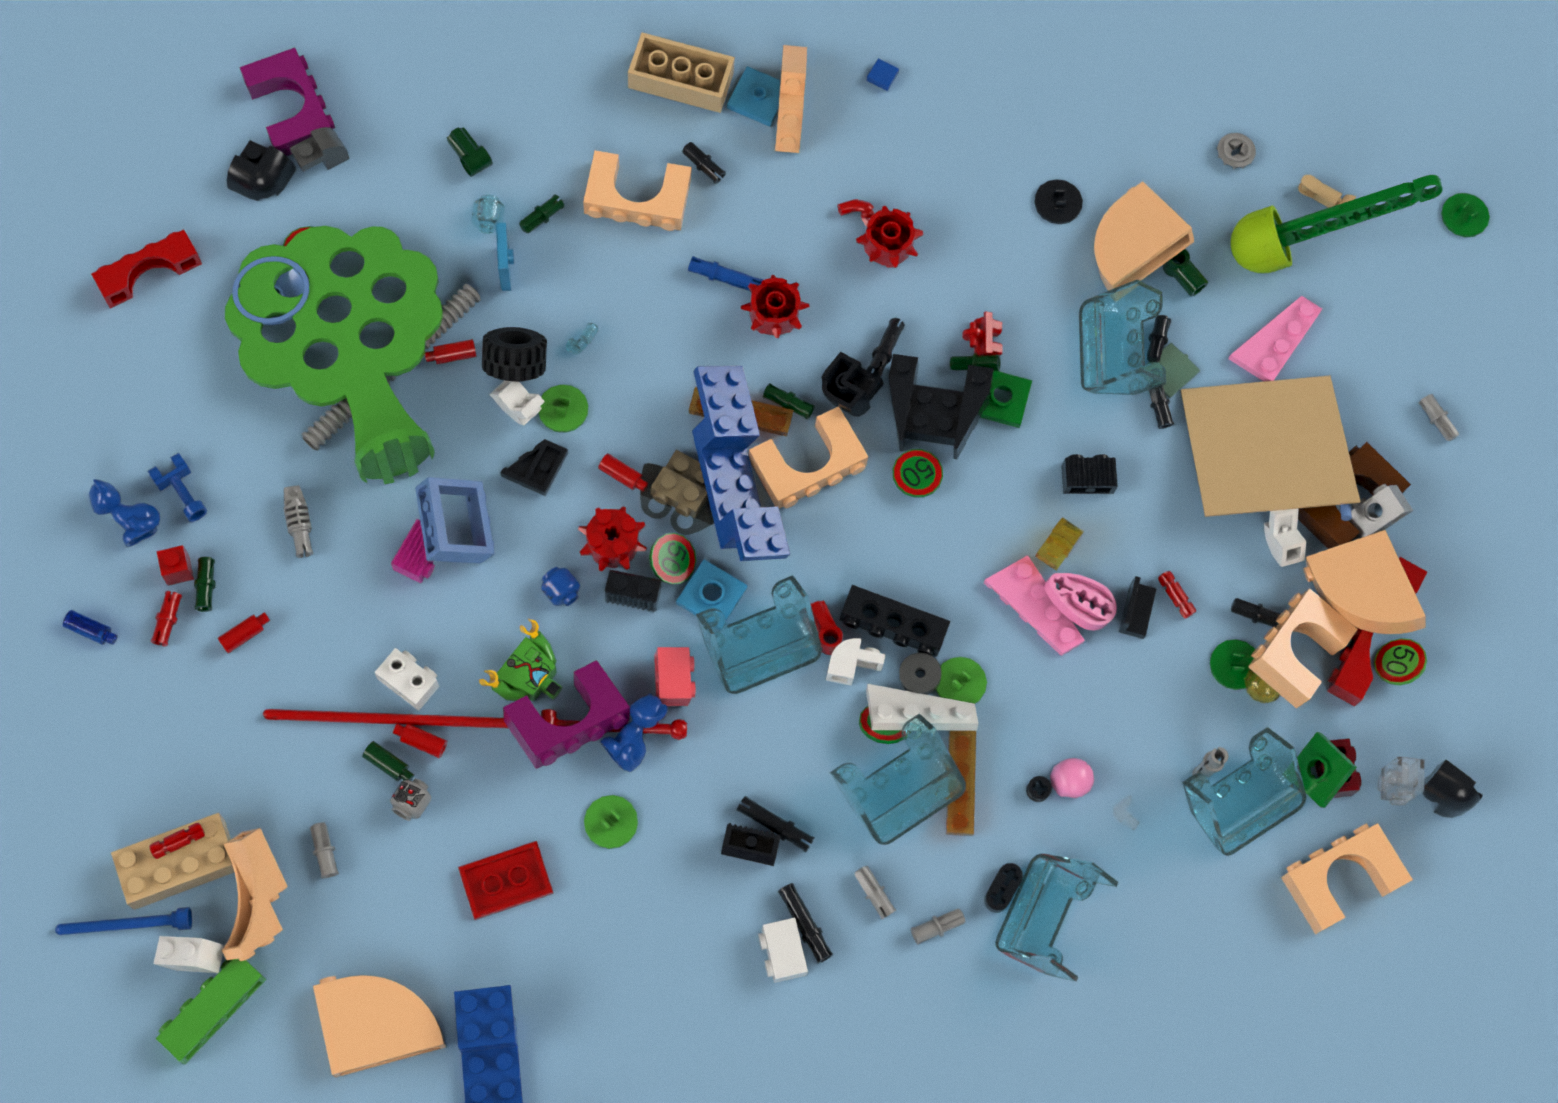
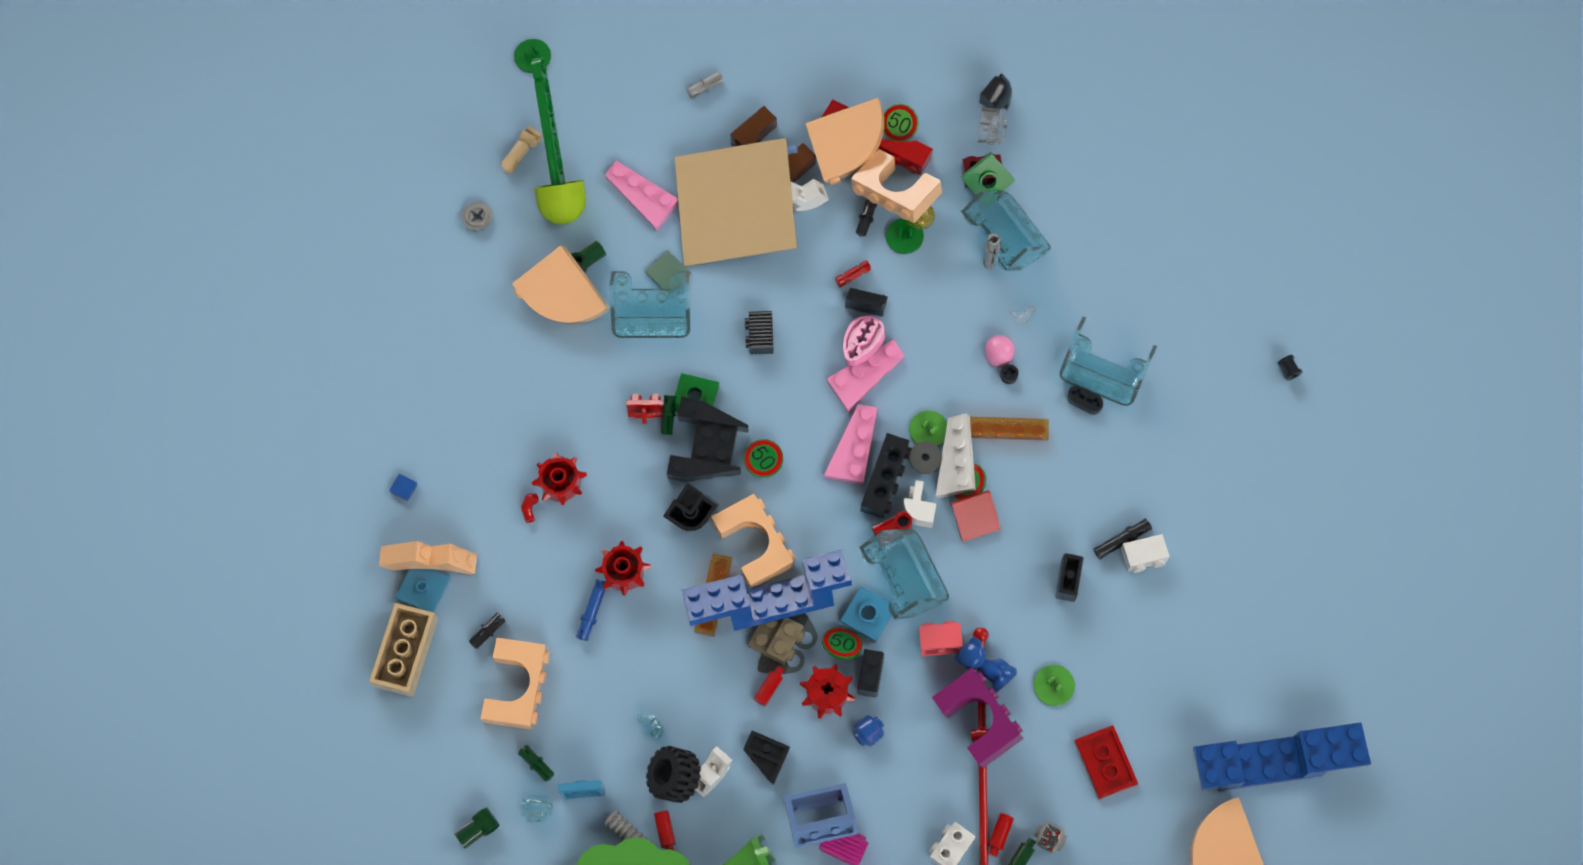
camera: 80 degrees left, 0 degrees up
(527, 670) = (940, 752): bright green torso -> none
(563, 408) = (711, 734): bright green piece -> none
(776, 824) = (1053, 554): black pin -> none
(788, 401) = (703, 558): dark green pin -> none
(837, 730) = (975, 515): none -> tile
(874, 892) = (1096, 489): light grey axle -> none
(883, 353) = (665, 483): black pin -> none
(906, 787) = (1018, 465): clear light blue windscreen -> none
(931, 586) = (853, 451): none -> bright pink wing
(938, 926) = (1117, 445): light grey axle -> none
(1058, 201) = (521, 351): black piece -> none
(1059, 543) = (816, 351): clear yellow brick -> none
(1158, 338) = (646, 280): black axle -> none
(1161, 407) = (703, 279): black axle -> none
(1367, 848) = (1064, 192): light nougat arch -> none
(1393, 506) = (783, 117): light grey brick -> none

